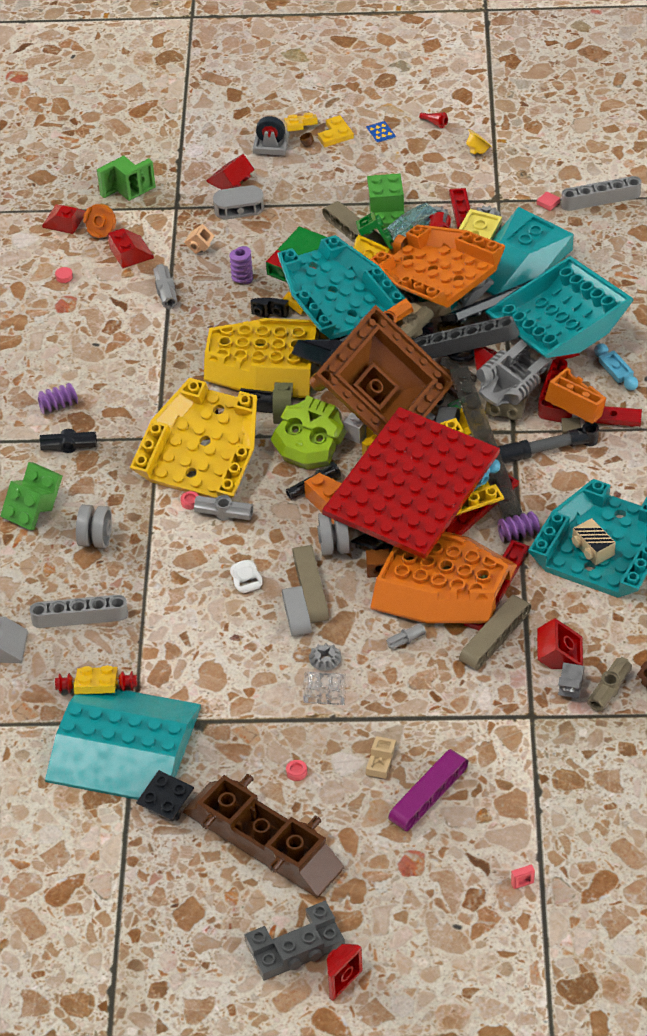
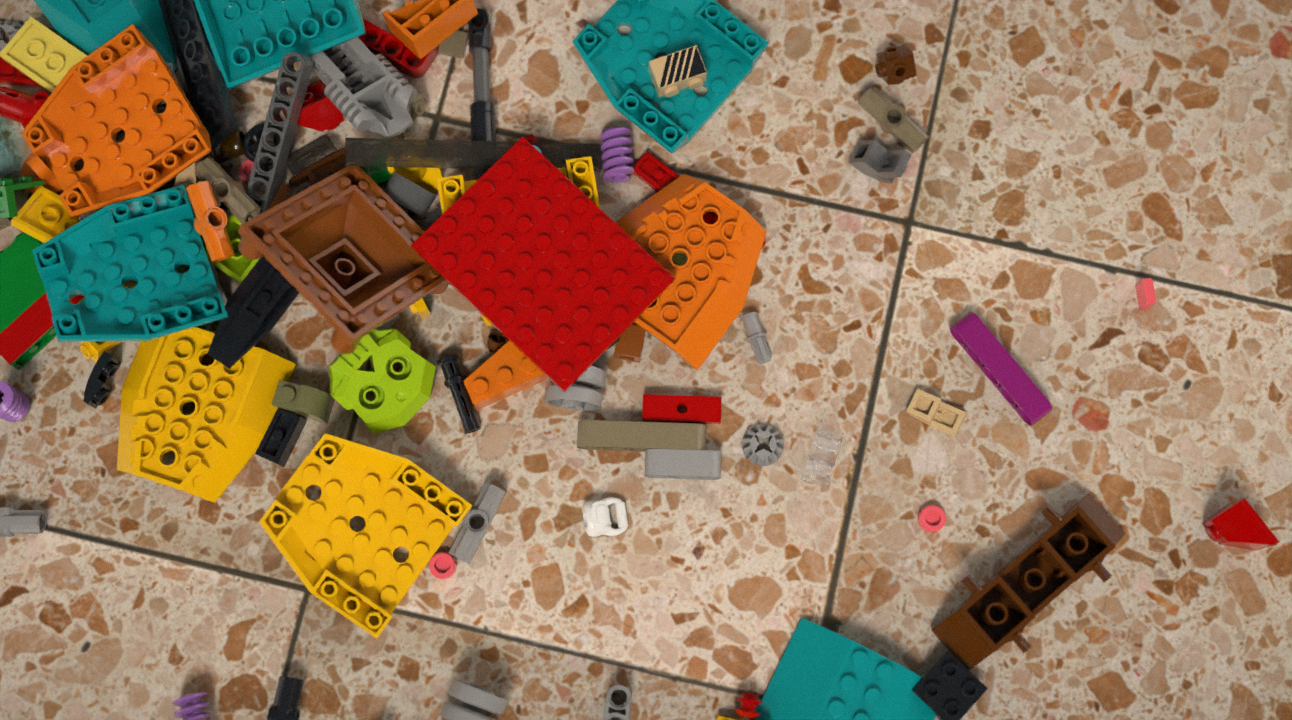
camera: 80 degrees left, 30 degrees up
(297, 946) = (1193, 572): dark grey bracket -> none
(337, 602) = (664, 409): none -> red tile
(495, 632) = (780, 229): dark tan beam -> none
(558, 645) = (822, 161): red slope -> none

